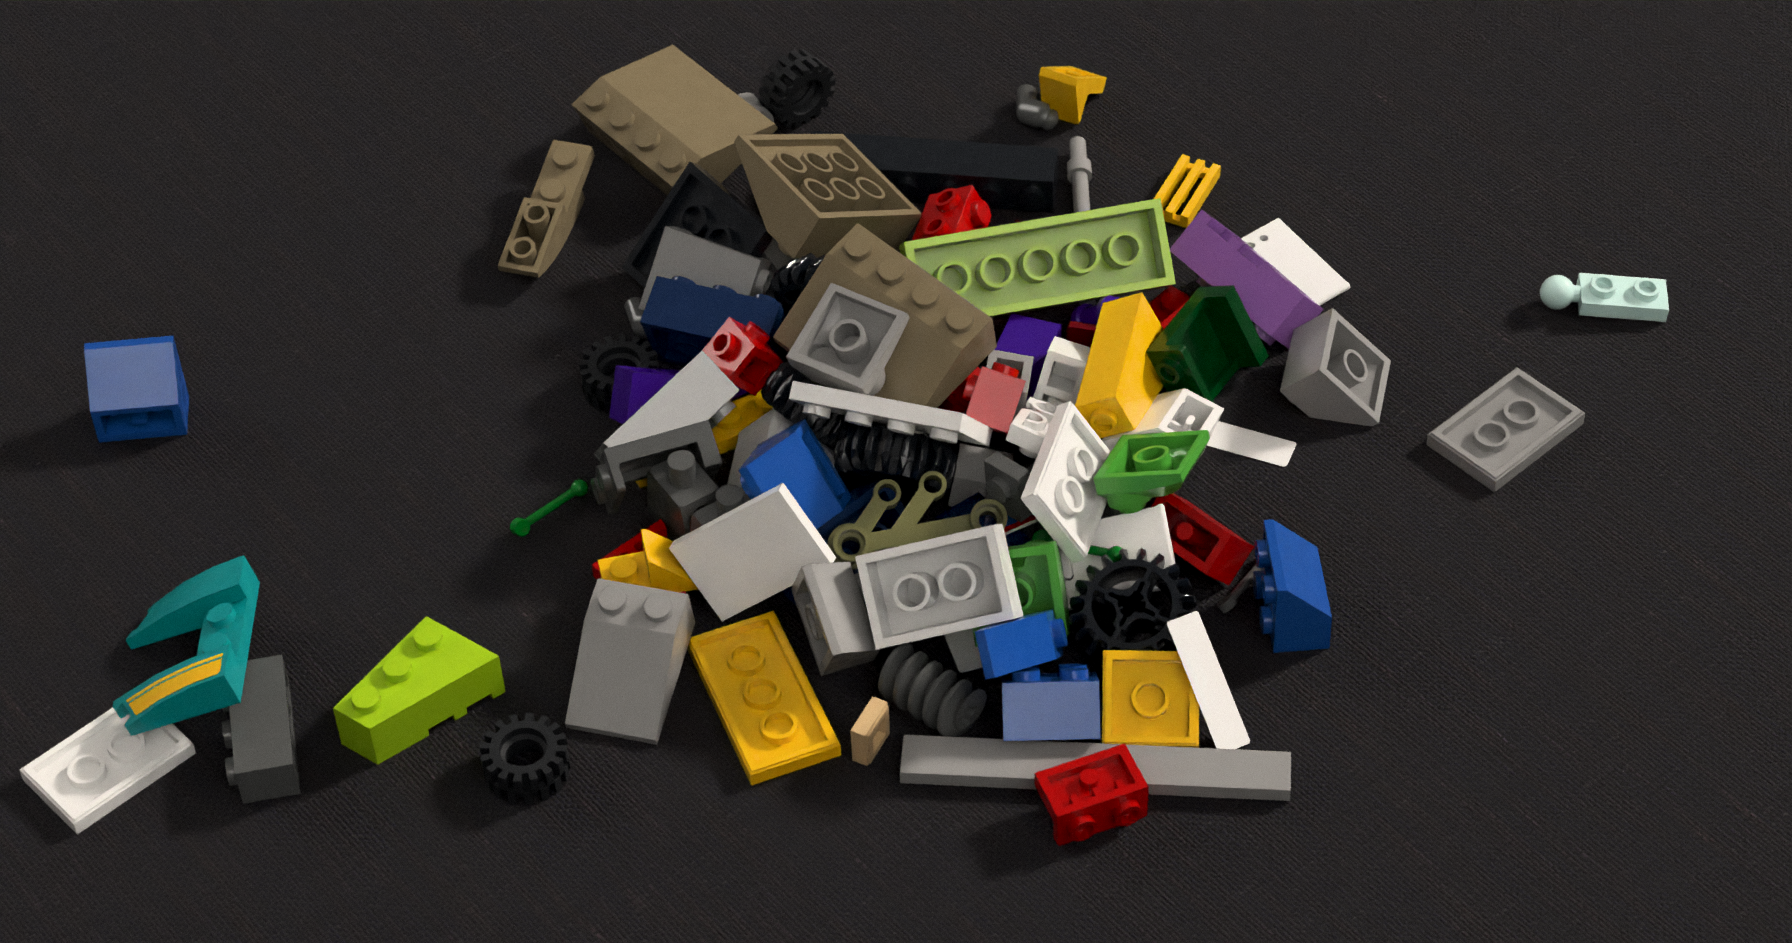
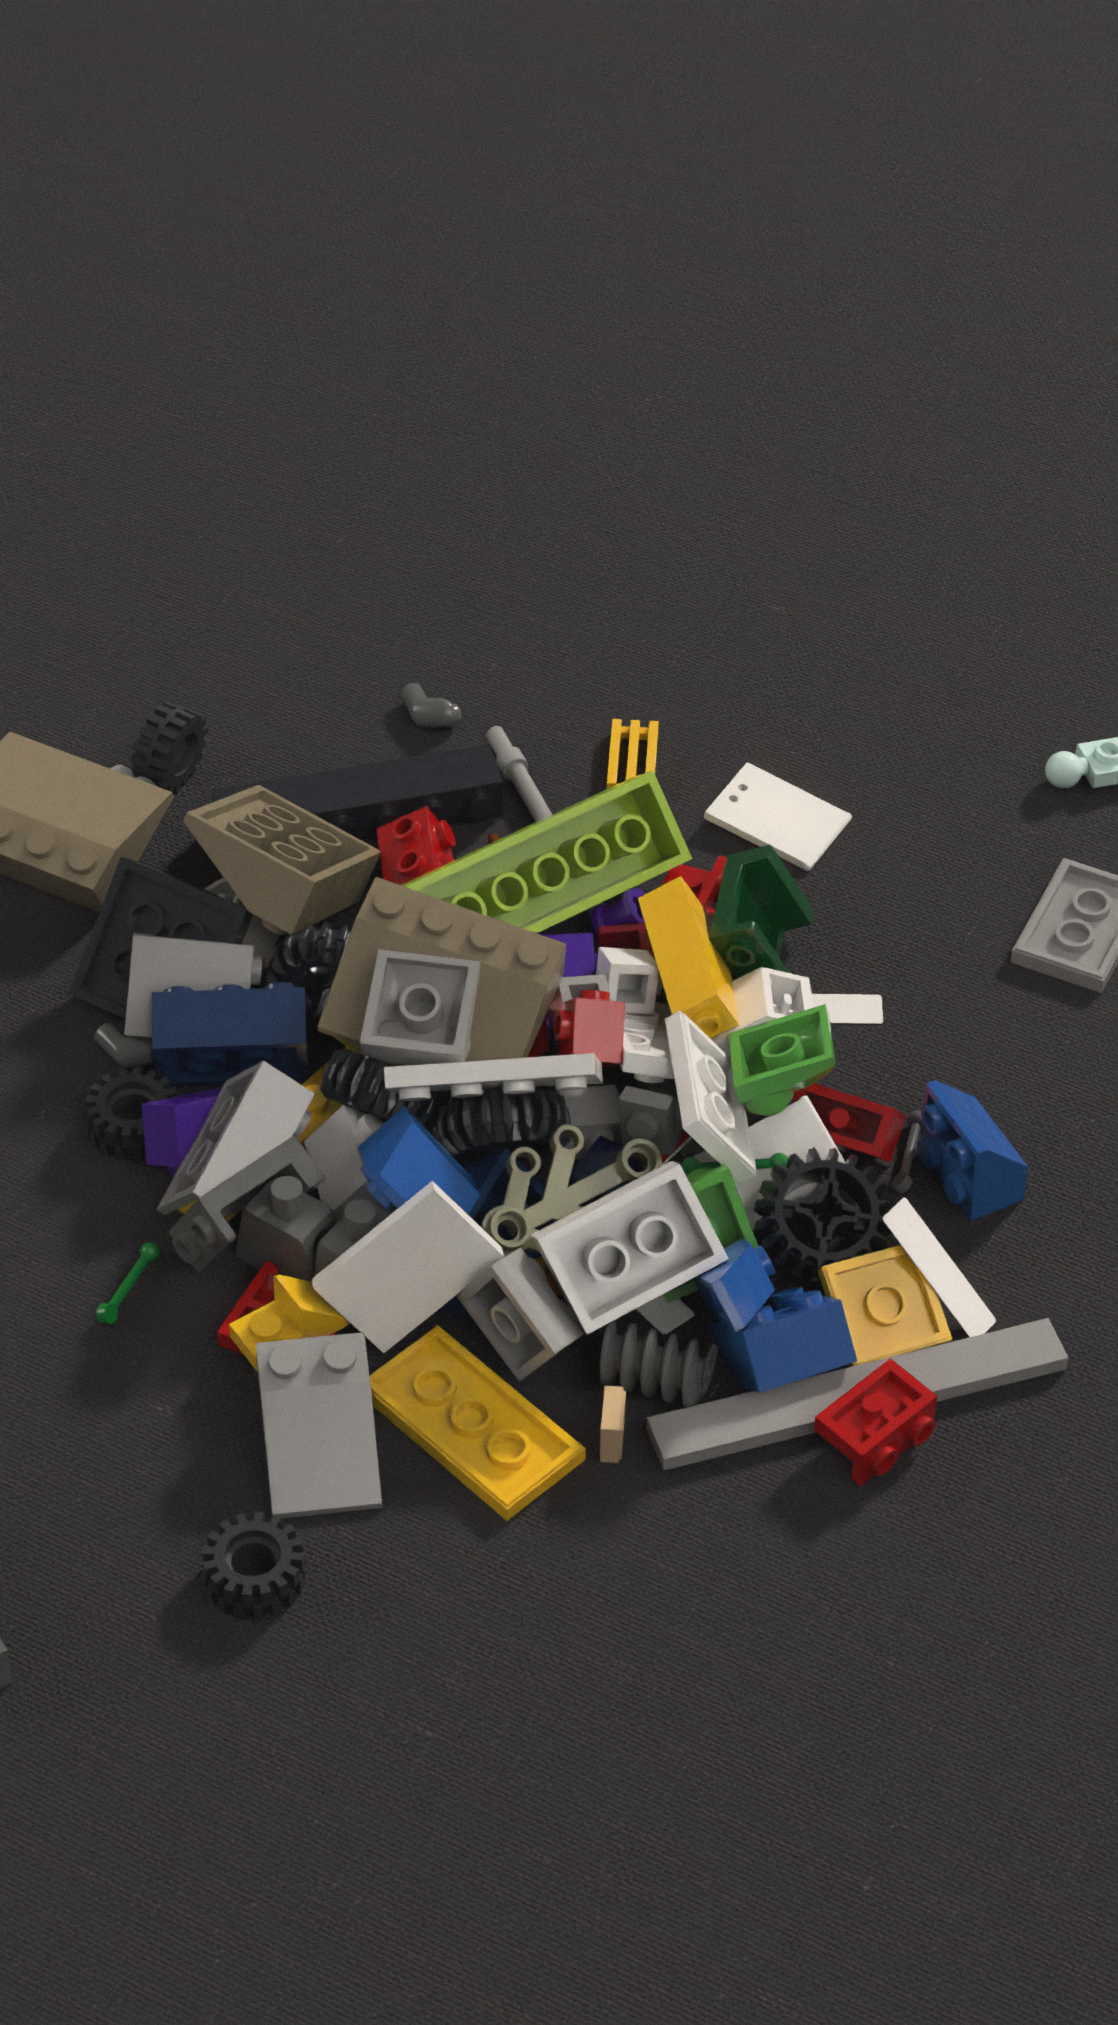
camera: 25 degrees left, 0 degrees up
(414, 688) = (95, 1524): lime wedge -> none
(743, 354) = (294, 1051): red brick -> none
(1067, 90) = (461, 679): yellow slope -> none
(1265, 292) = (734, 823): medium lavender wedge -> none
(1335, 372) = (888, 910): light grey slope -> none

